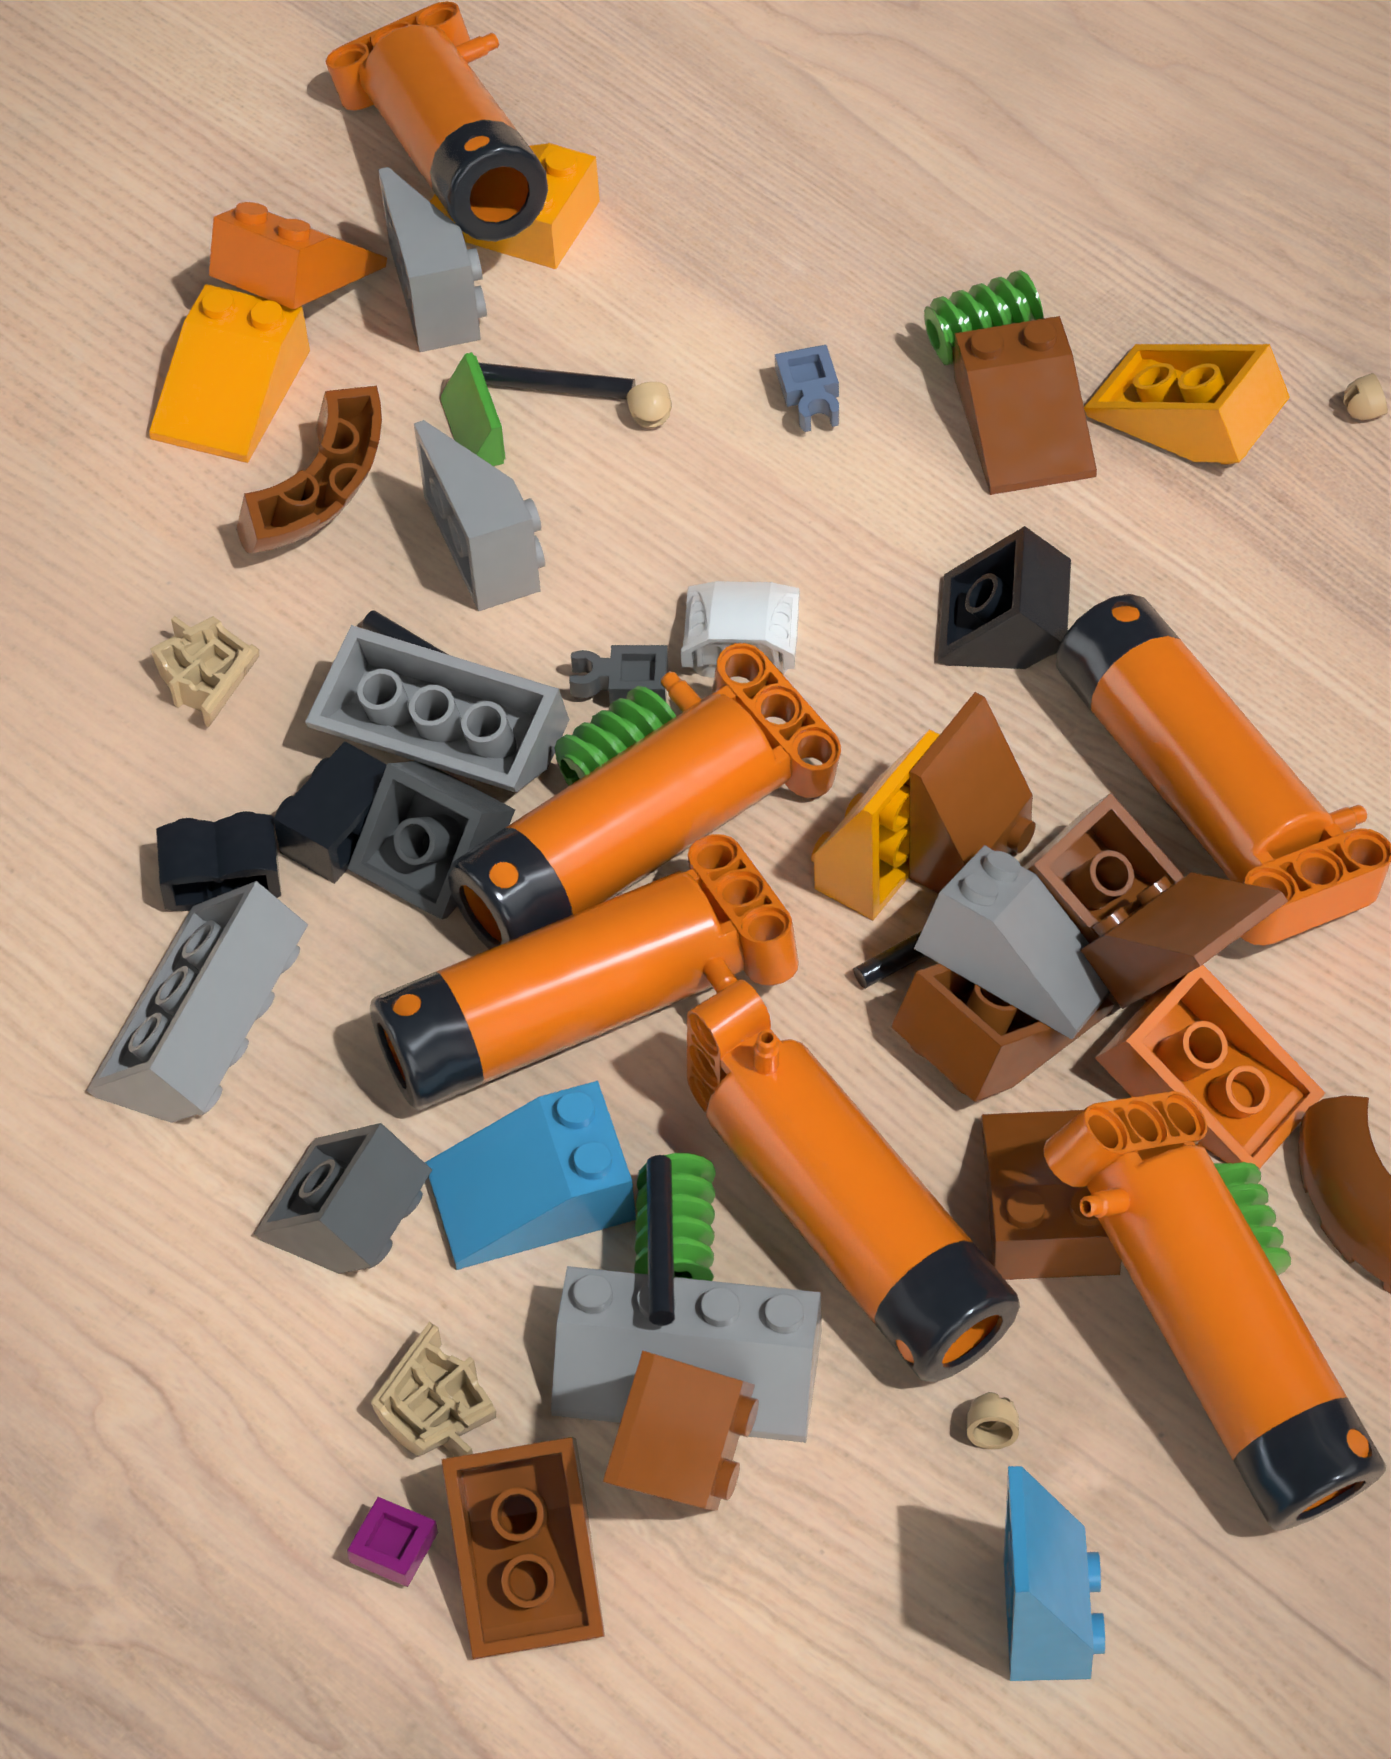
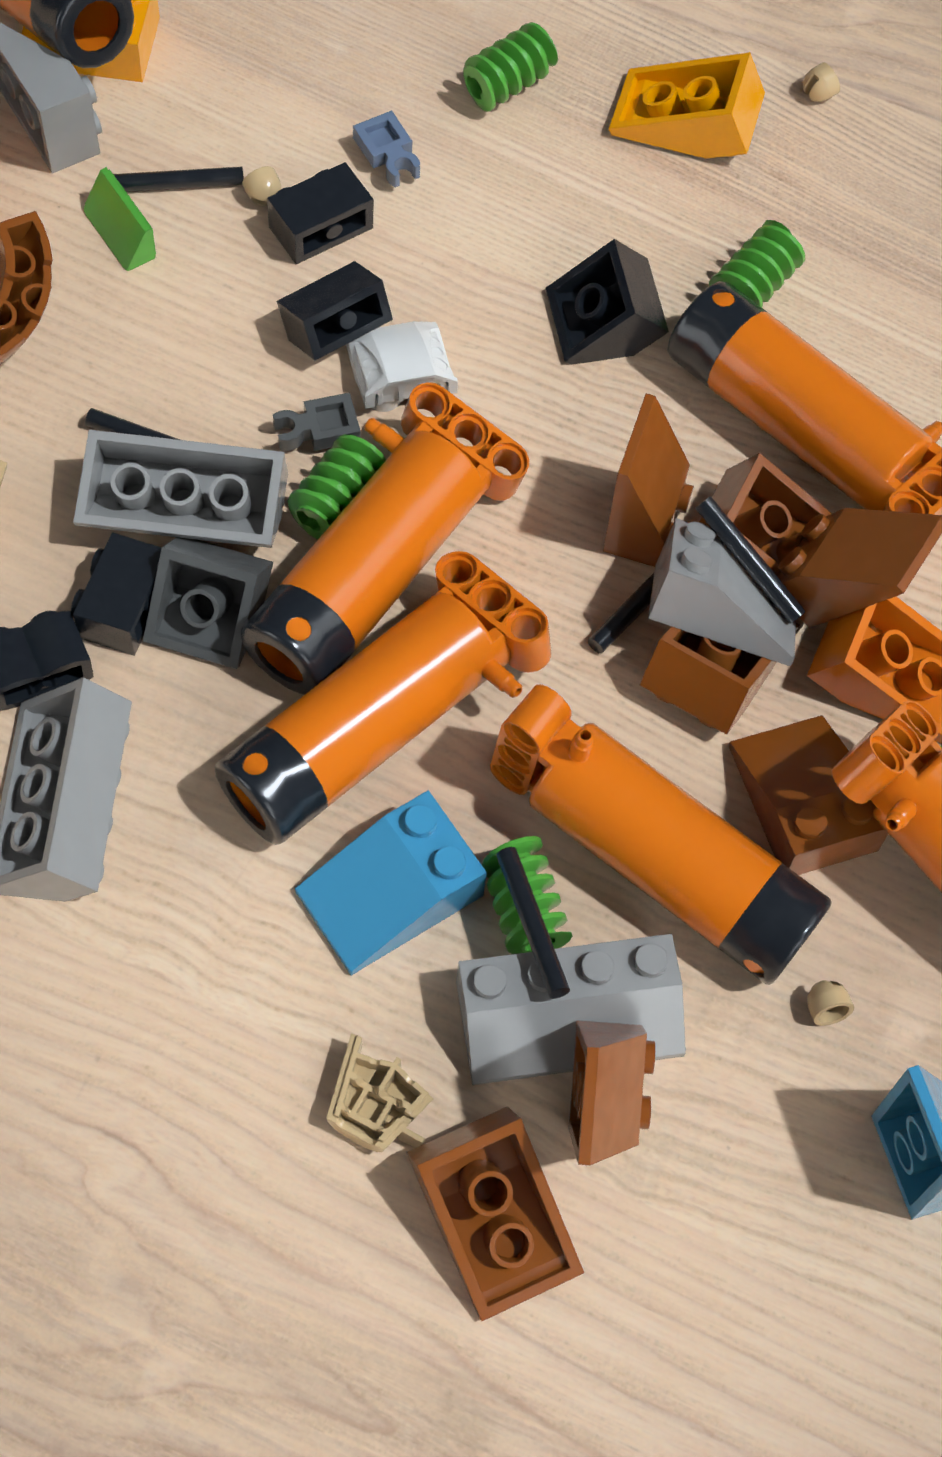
camera: 25 degrees left, 10 degrees up
(346, 1199) = (242, 940): dark grey slope -> none
(392, 1541) = (383, 1237): magenta plate -> none
(480, 519) = (159, 311): light grey slope -> none
(680, 552) = (335, 310): none -> black brick
(704, 444) = (320, 212): none -> black brick
(870, 848) = (577, 519): light orange slope -> none
(1024, 405) = (563, 134): dark orange slope -> none
(1057, 908) = (750, 559): none -> black bar
(1208, 591) = (763, 262): none -> bright green piece

